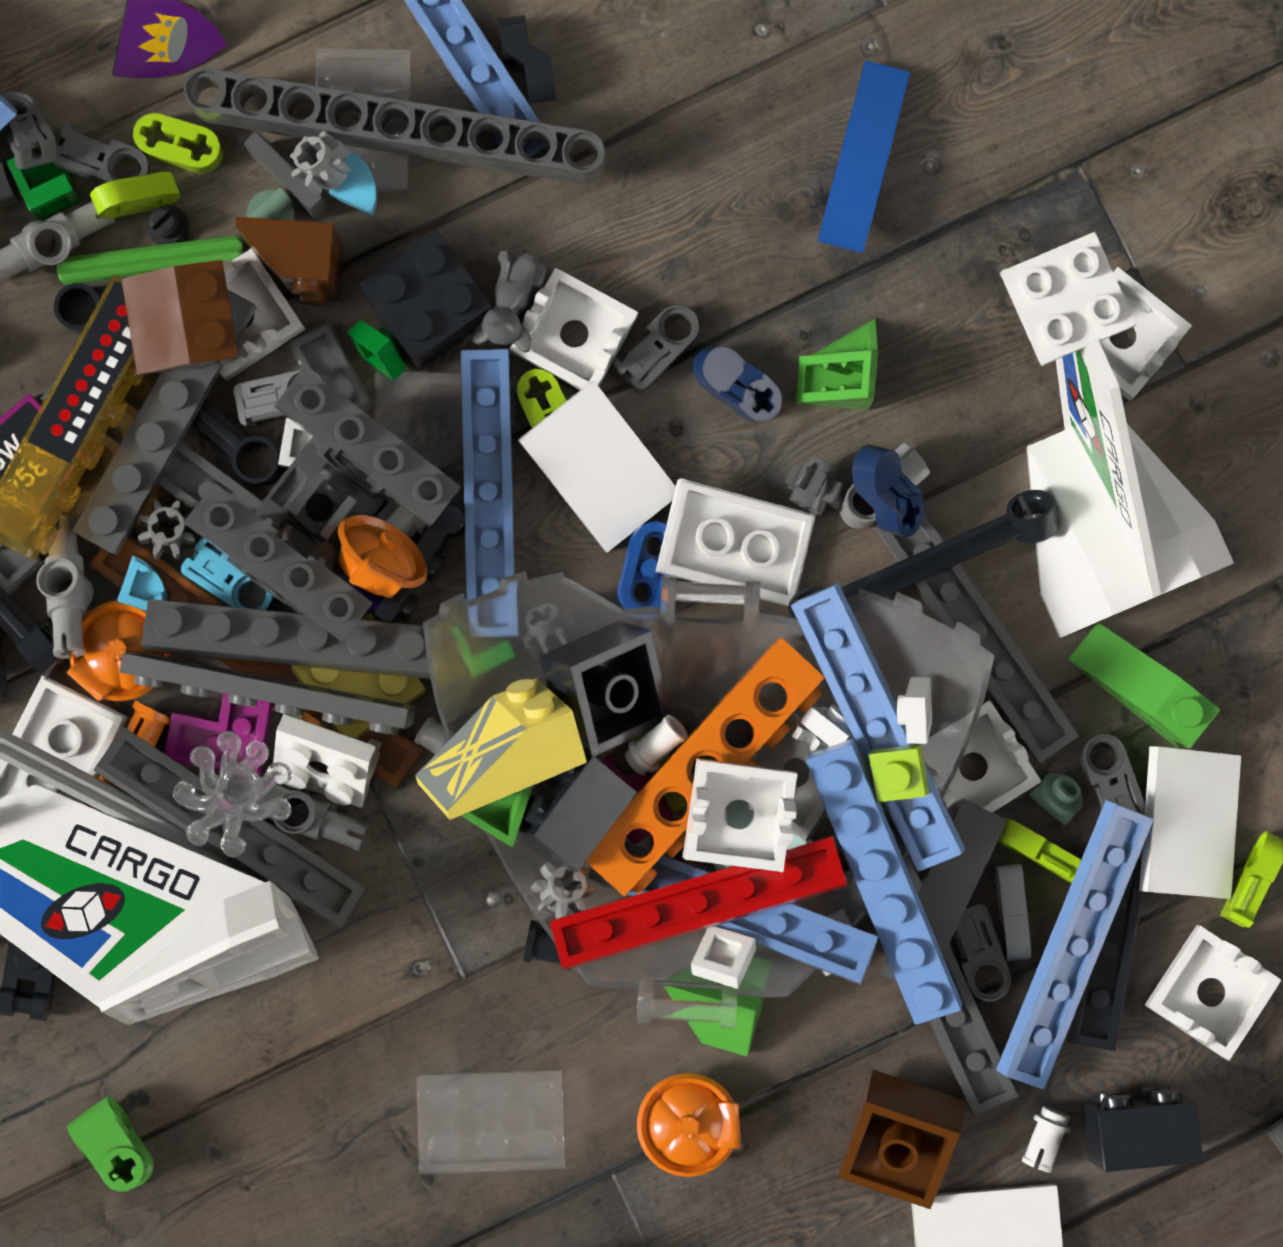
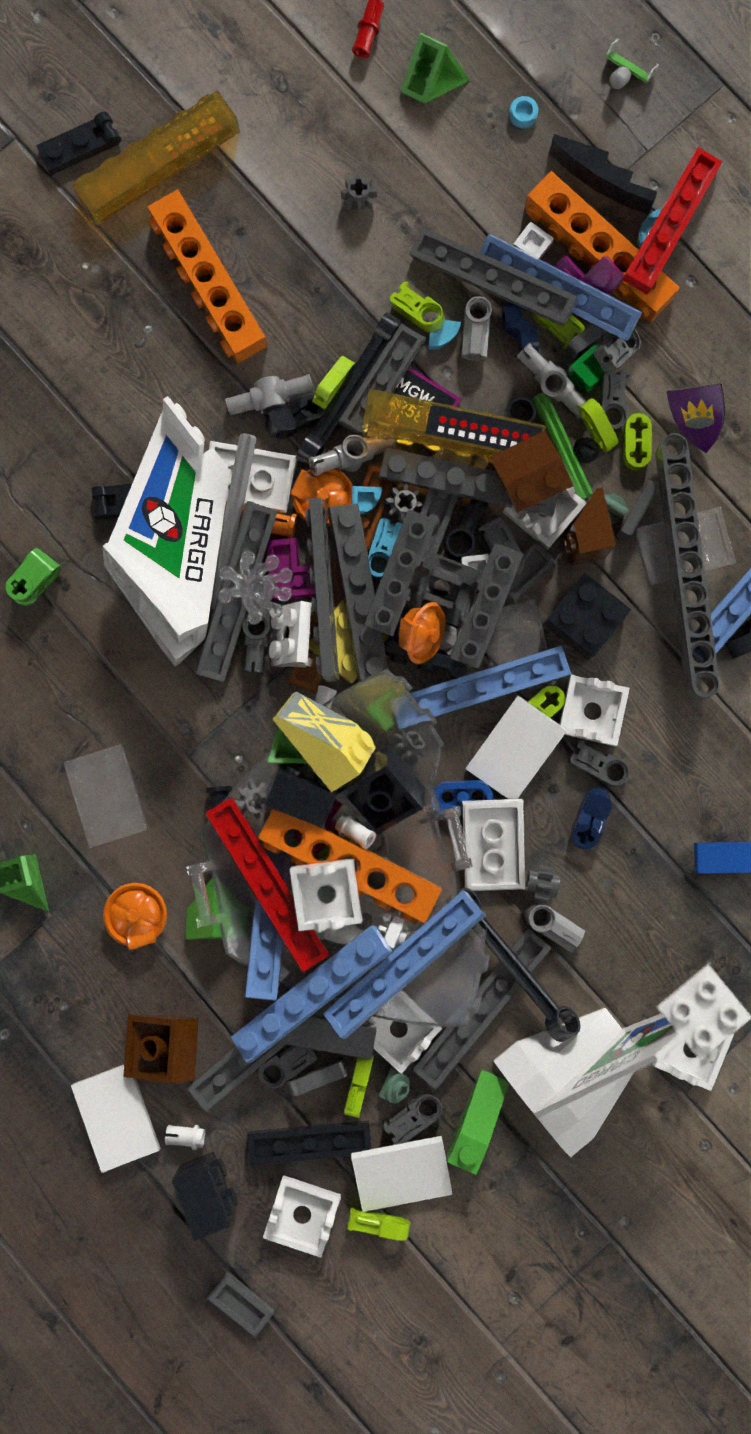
camera: 75 degrees right, 0 degrees up
(320, 163) = (650, 528): light grey gear -> none
(358, 187) = (643, 553): medium azure tile -> none
(378, 349) = (548, 596): green plate -> none
(514, 292) = (606, 667): dark grey animal -> none
(723, 956) = (239, 908): white plate -> none
(841, 372) = (617, 880): bright green slope -> none
(888, 490) = (552, 929): dark blue piece -> none
(899, 773) = (379, 985): lime plate -> none
(916, 710) = (420, 985): white plate -> none
(1074, 945) = (307, 1122): medium blue plate -> none

